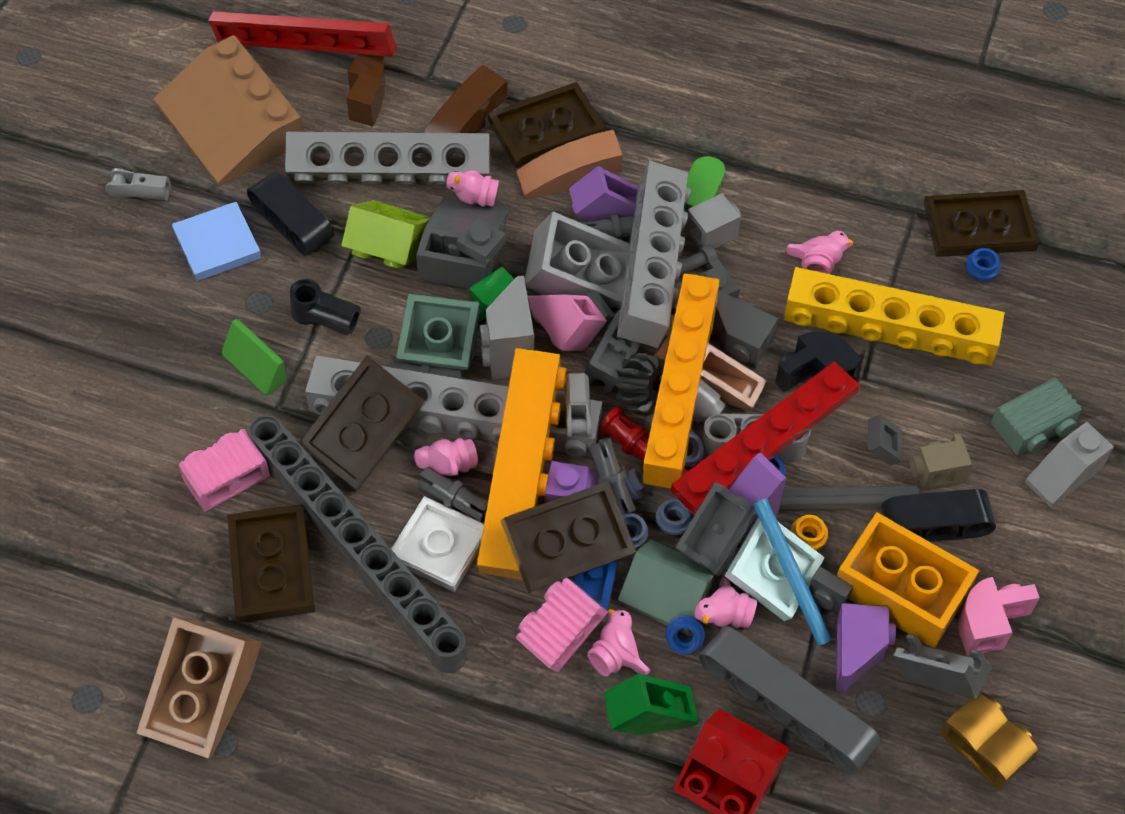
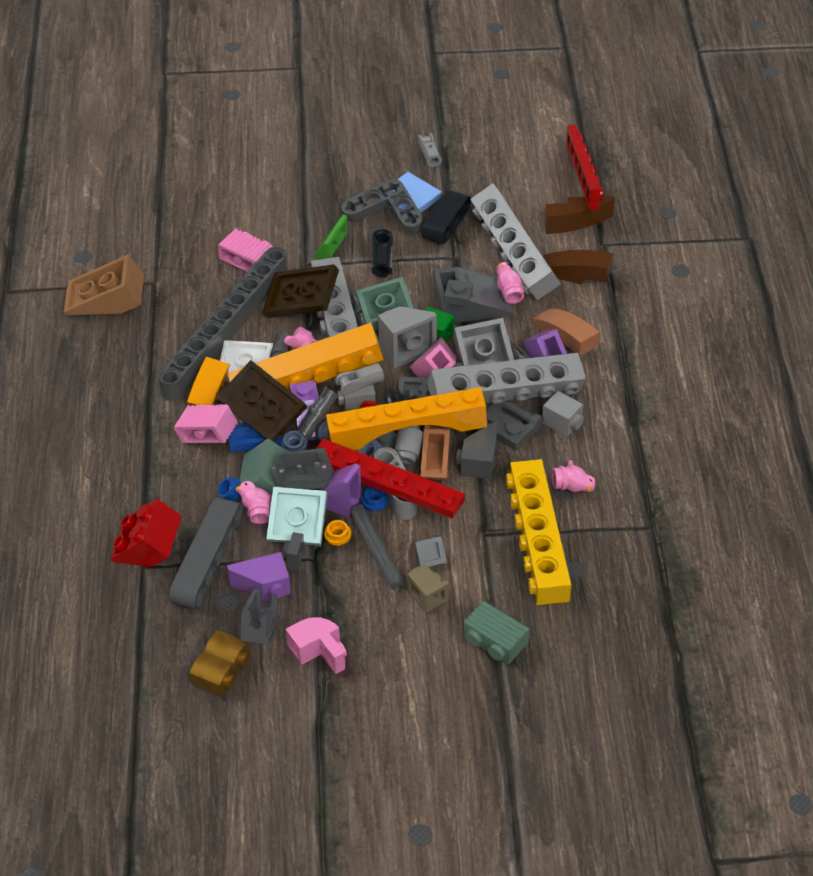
camera: 70 degrees right, 10 degrees down
(228, 111) = (512, 163): medium nougat slope -> none
(228, 258) = (391, 199): none -> dark grey beam
(270, 563) = (193, 293): dark brown plate -> none
(384, 232) = (456, 251): lime slope -> none
(473, 596) = (208, 382): none -> light orange slope
(544, 123) = (597, 307): dark brown plate -> none
(616, 646) = (207, 459): bright pink animal -> none
(649, 706) = (172, 486): green slope -> none
(704, 180) = (600, 402): bright green tile -> none
(792, 572) = (297, 518): dark azure bar -> none
(812, 355) = (479, 500): black brick -> none
(909, 576) = (317, 581): light orange brick -> none
(943, 514) = (382, 596): black beam -> none
(980, 220) = (663, 566): dark brown tile -> none
(986, 258) = (625, 570): blue plate -> none
(1070, 464) = (466, 662): light grey slope -> none

